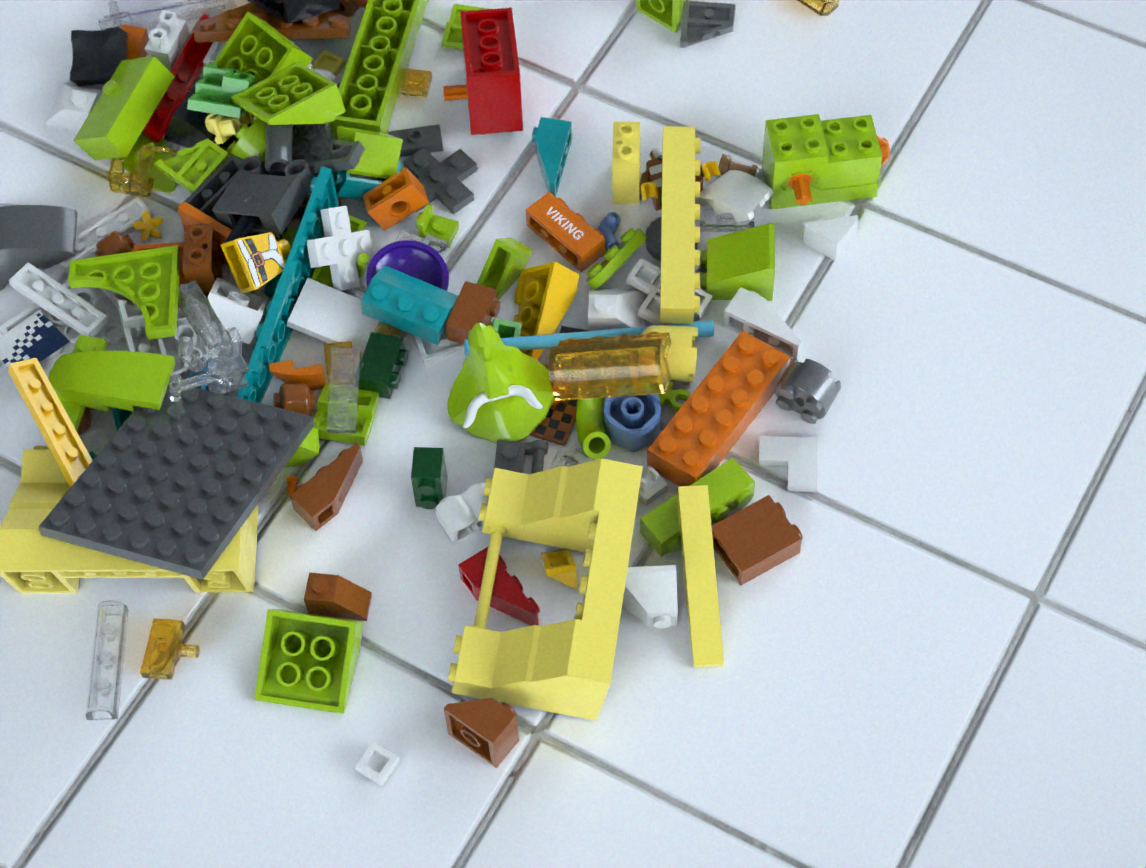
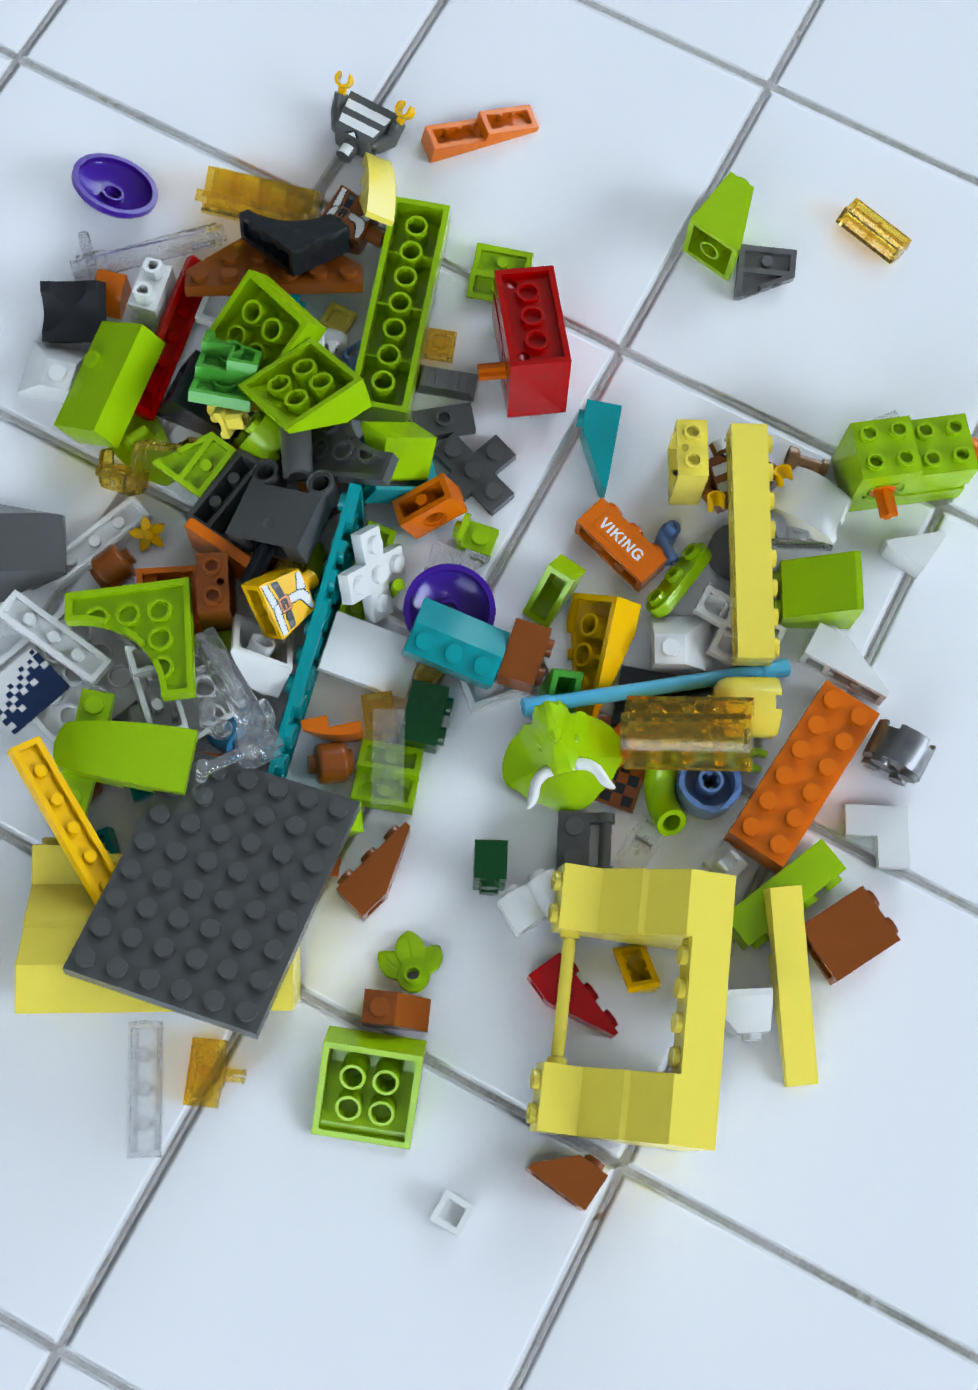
camera: 10 degrees left, 15 degrees up
(355, 561) = (410, 957): none -> lime plate
(420, 111) = (447, 383): none -> flat silver tile

